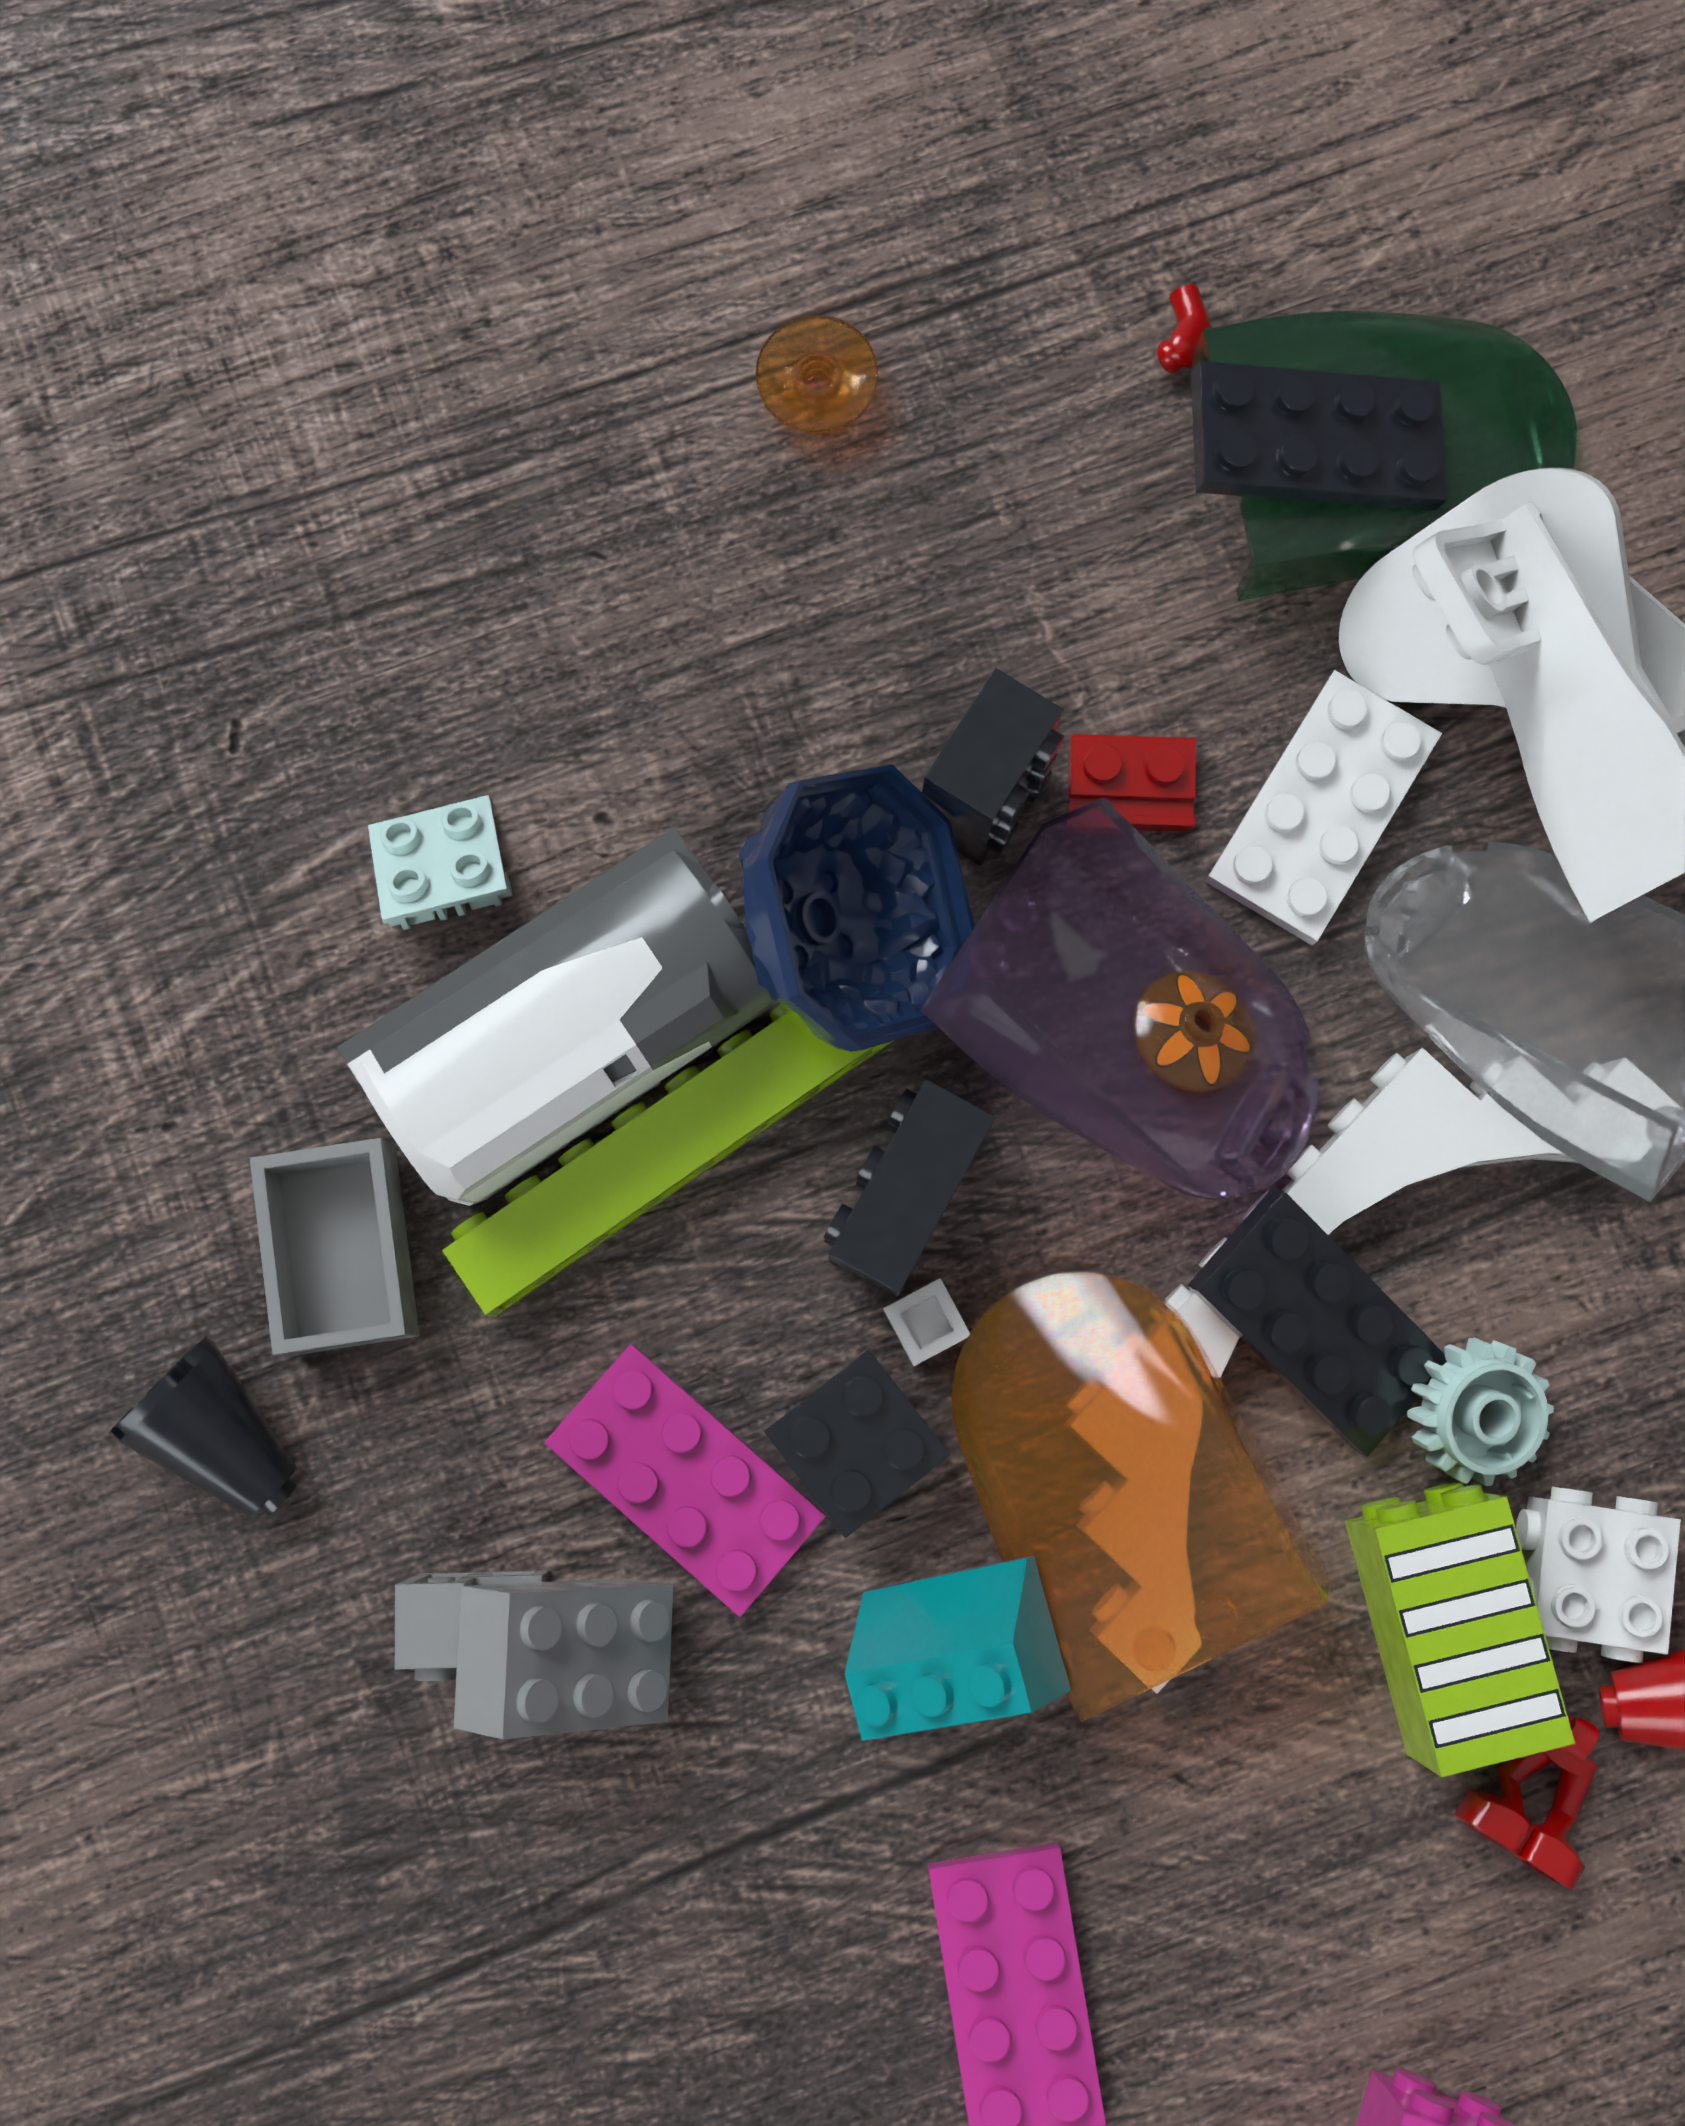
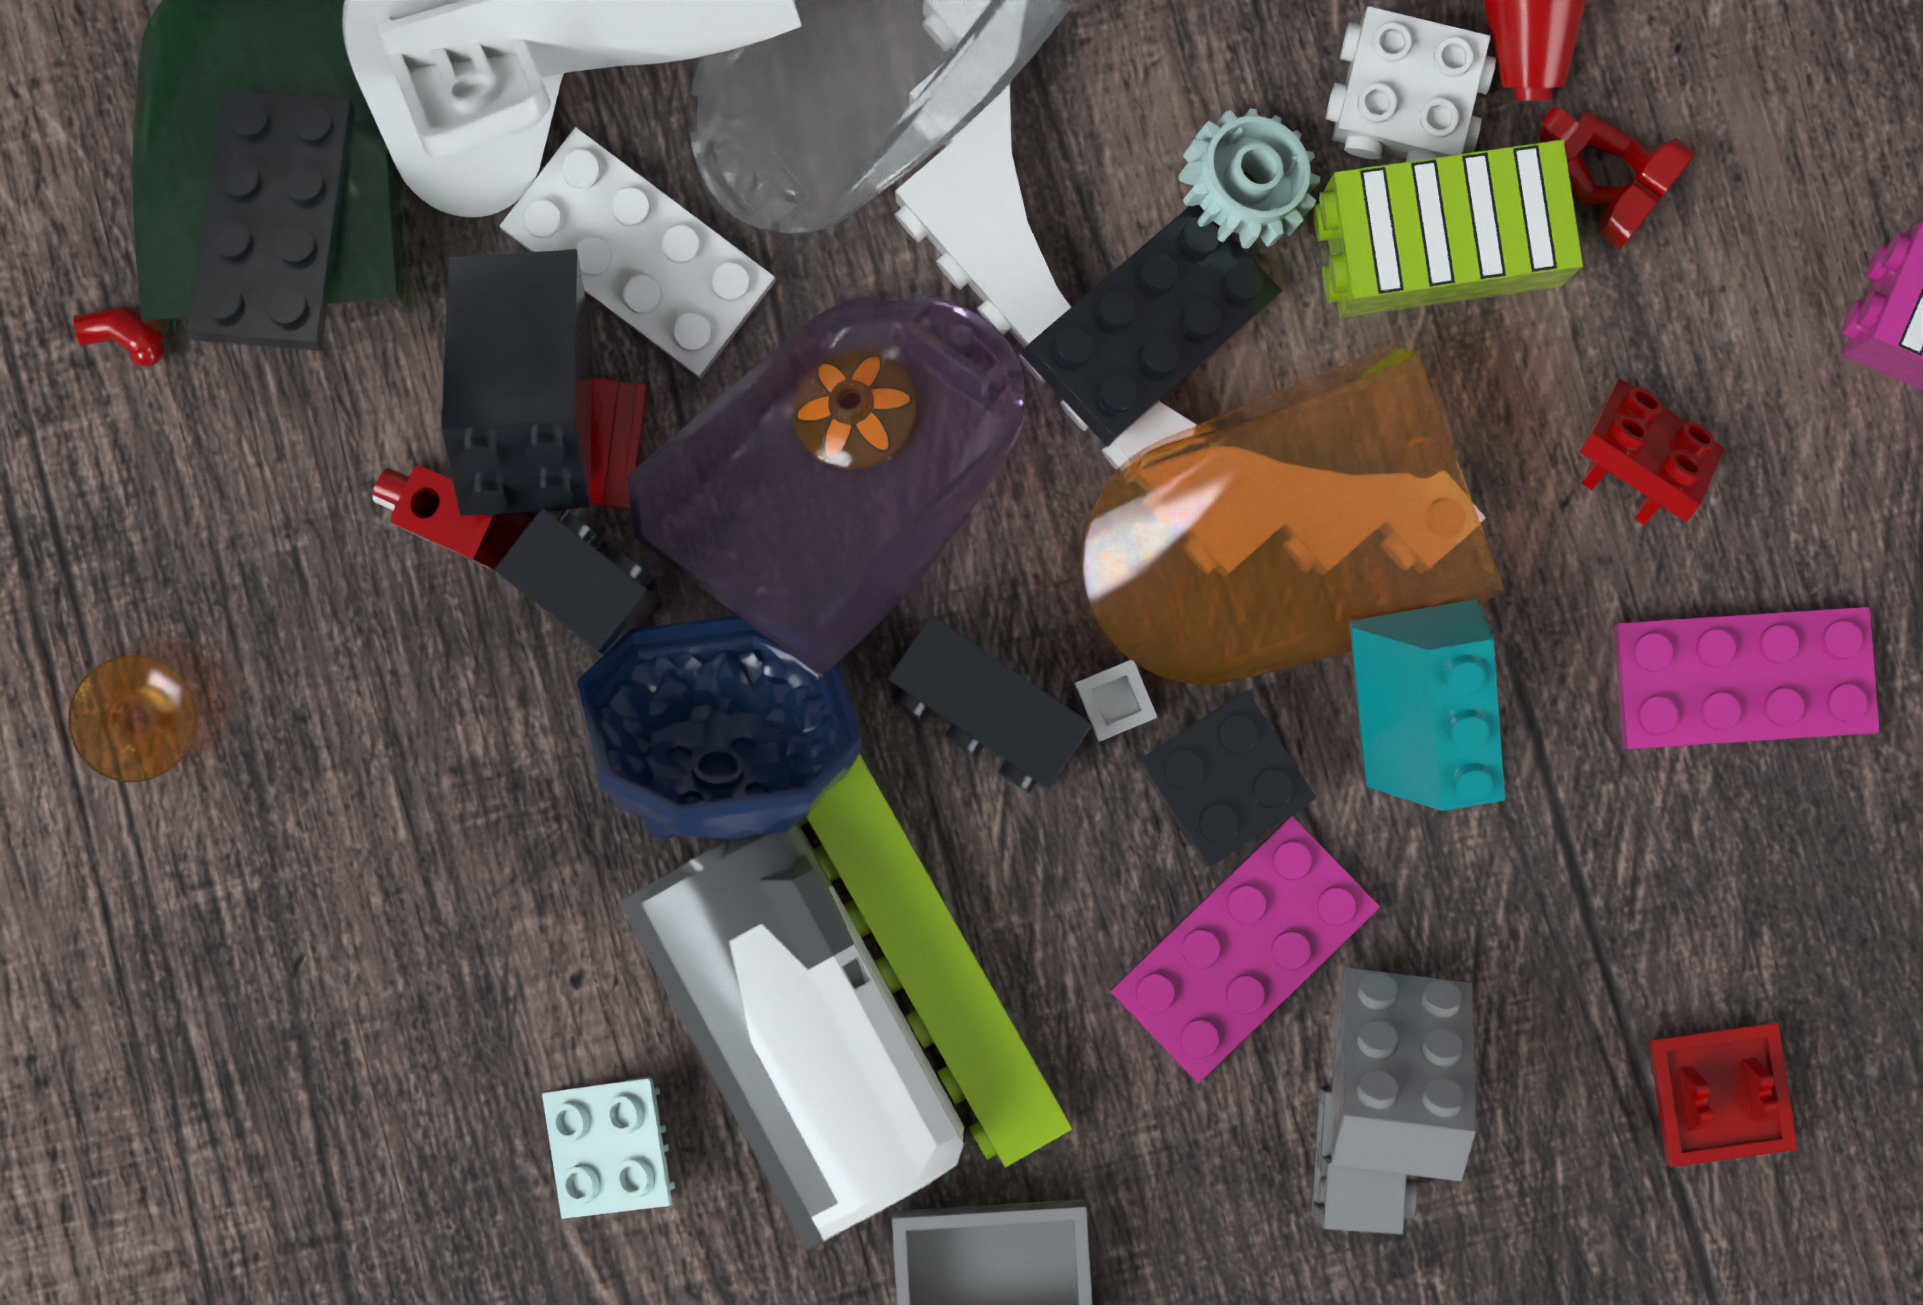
camera: 85 degrees left, 5 degrees up
(573, 2005) = (1722, 1094): none -> red plate
(1048, 635) = (429, 509): none -> red torso
(1184, 685) = (517, 383): none -> black brick
(1246, 1870) = (1651, 452): none -> red plate

